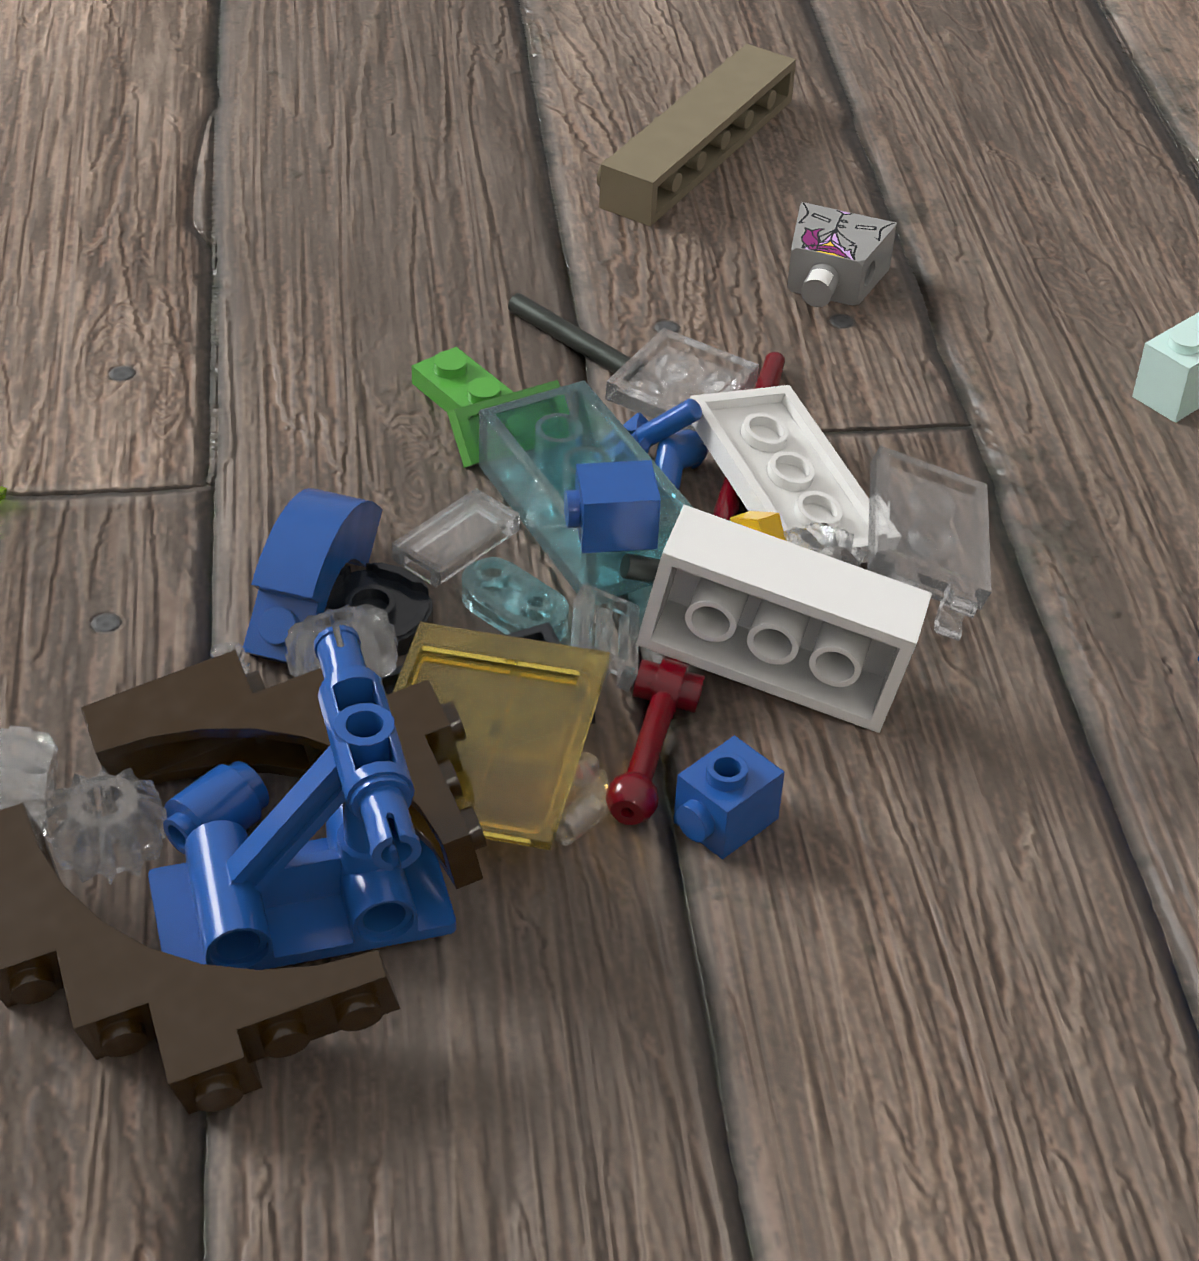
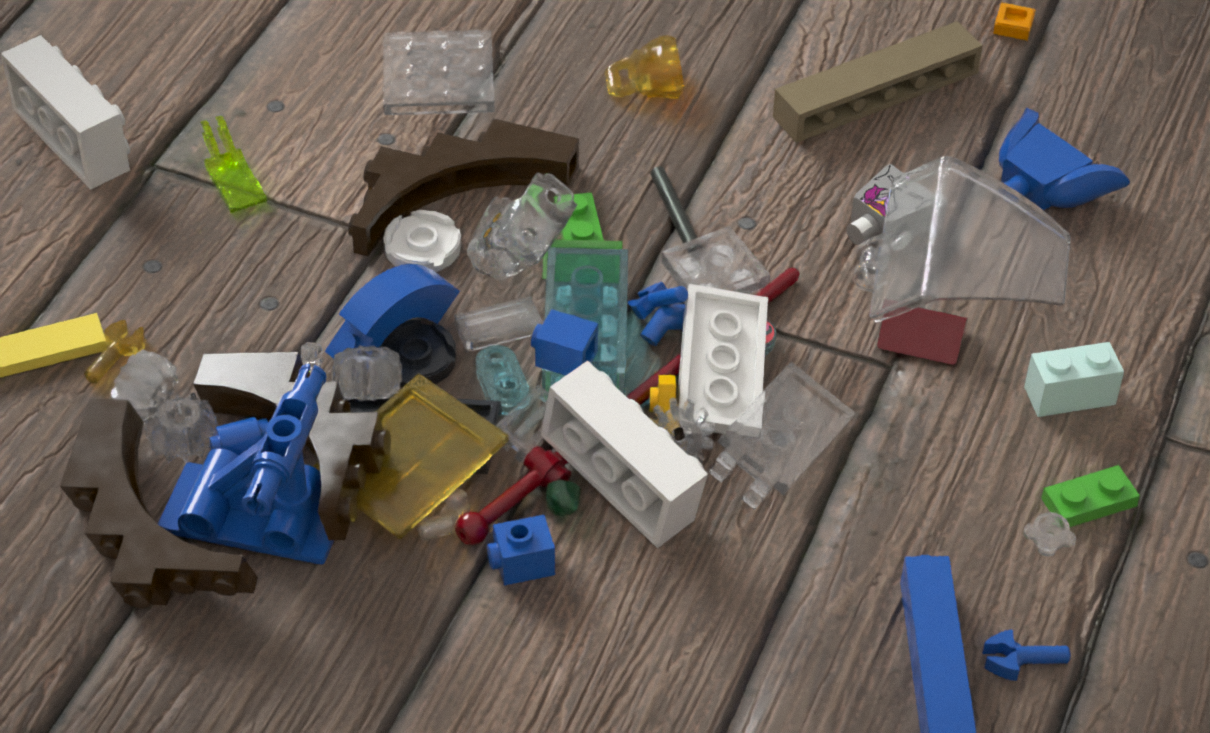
camera: 30 degrees right, 5 degrees up
(137, 275) = (438, 72): none -> clear plate
(267, 472) = (422, 239): none -> white tile
(311, 337) = (453, 165): none -> dark brown arch
(425, 407) = (520, 231): none -> clear piece
(426, 189) = (651, 70): none -> clear yellow piece
(718, 712) = (562, 497): none -> clear green hinge
(789, 38) = (1014, 21): none -> light orange tile
(940, 260) = (960, 238): none -> clear panel
(967, 163) = (1051, 169): none -> blue torso
(981, 370) = (924, 335): none -> dark red panel

